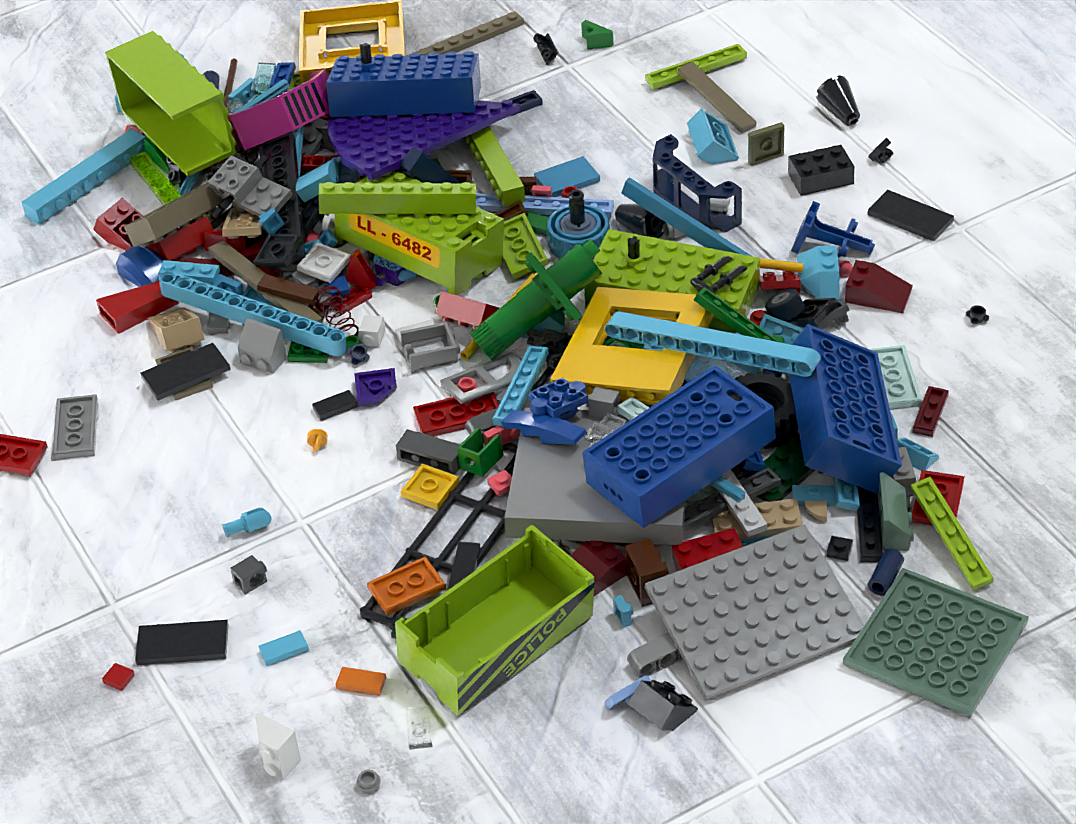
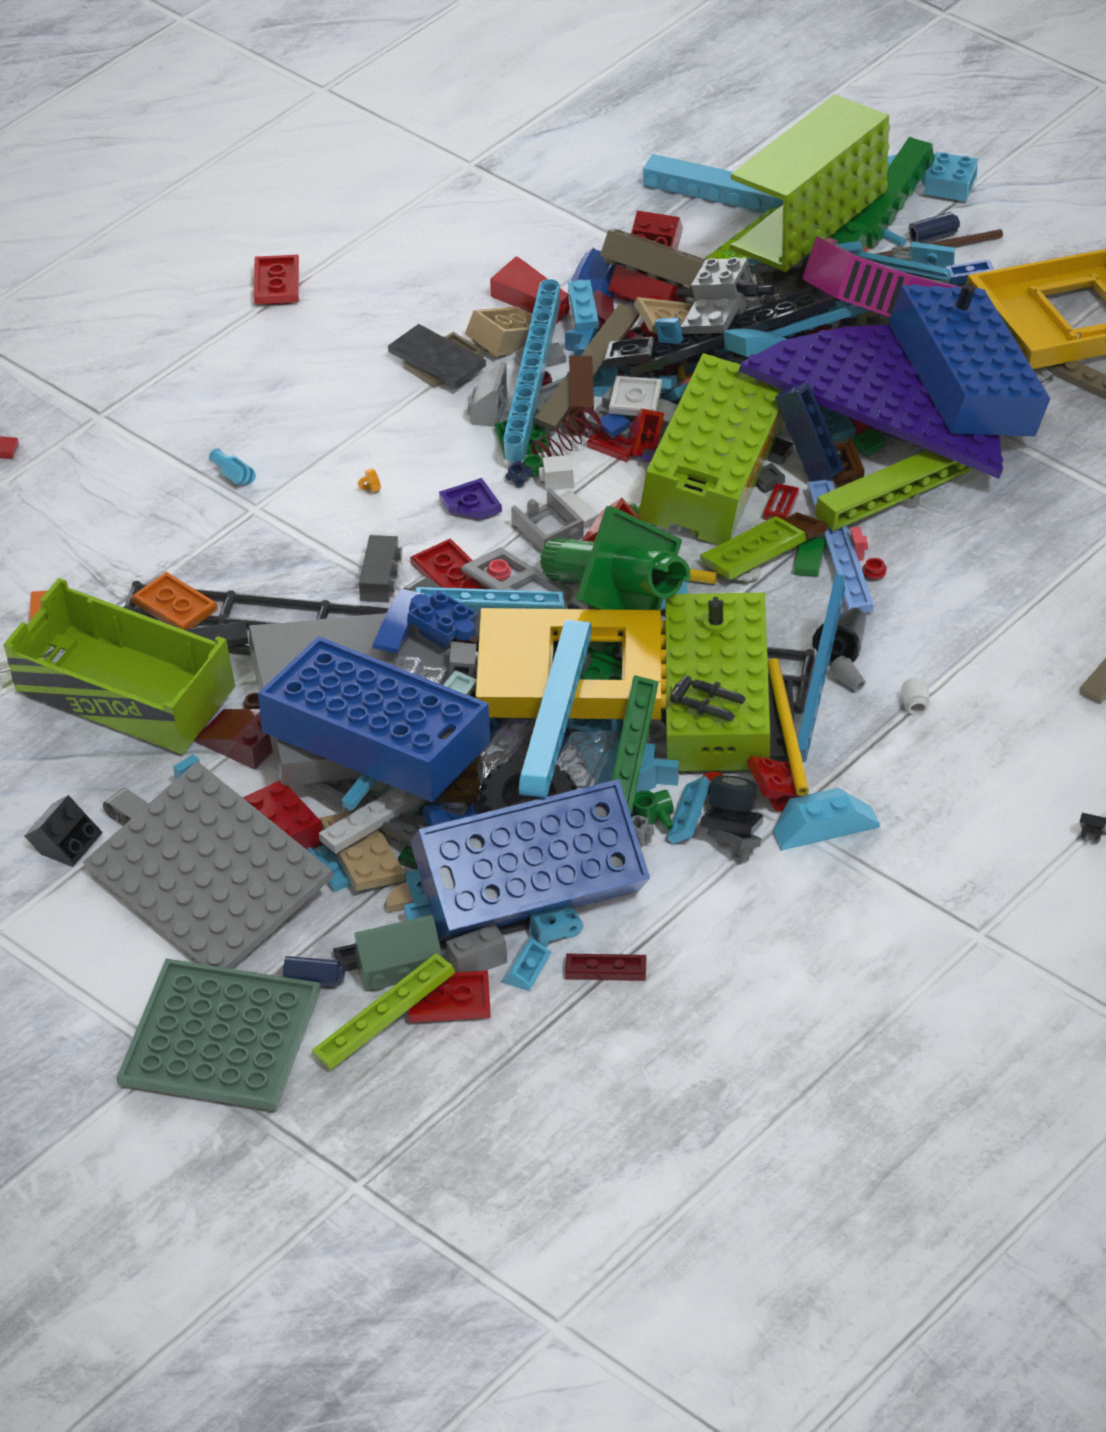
camera: 70 degrees right, 0 degrees up
(75, 427) = (335, 311): light grey tile -> none
(182, 642) = (60, 475): black tile -> none
(249, 574) = (158, 489): dark grey brick -> none
(263, 77) = (958, 256): clear light blue slope -> none
(283, 648) = (71, 544): medium azure tile -> none
(334, 405) = (431, 479): black tile -> none
(397, 198) = (704, 396): lime brick -> none
(429, 486) = (329, 582): yellow plate -> none
(484, 457) = (376, 594): green piece -> none
(527, 101) = (1040, 485): dark blue tile -> none
(528, 183) = (868, 526): reddish brown tile -> none
(571, 173) = (911, 558): dark azure tile -> none
(575, 225) = (795, 585): dark azure wheel -> none
(624, 694) = (59, 793): light blue plate -> none
(643, 566) = (241, 765): reddish brown brick -> none
(677, 172) = (911, 649): dark blue windscreen -> none
(711, 138) = (1041, 665): medium azure slope -> none
(766, 143) = (1039, 709): olive plate -> none
(814, 229) = (886, 784): blue piece -> none
(821, 169) = (1021, 775): black brick -> none
(839, 548) = (344, 928): black plate -> none
(845, 268) = (837, 840): coral hinge -> none
(876, 288) = (809, 873): dark red slope -> none
(898, 377) = (655, 922): light aqua tile -> none
(910, 215) = (977, 882): black tile -> none
(977, 314) = (800, 978): black plate -> none

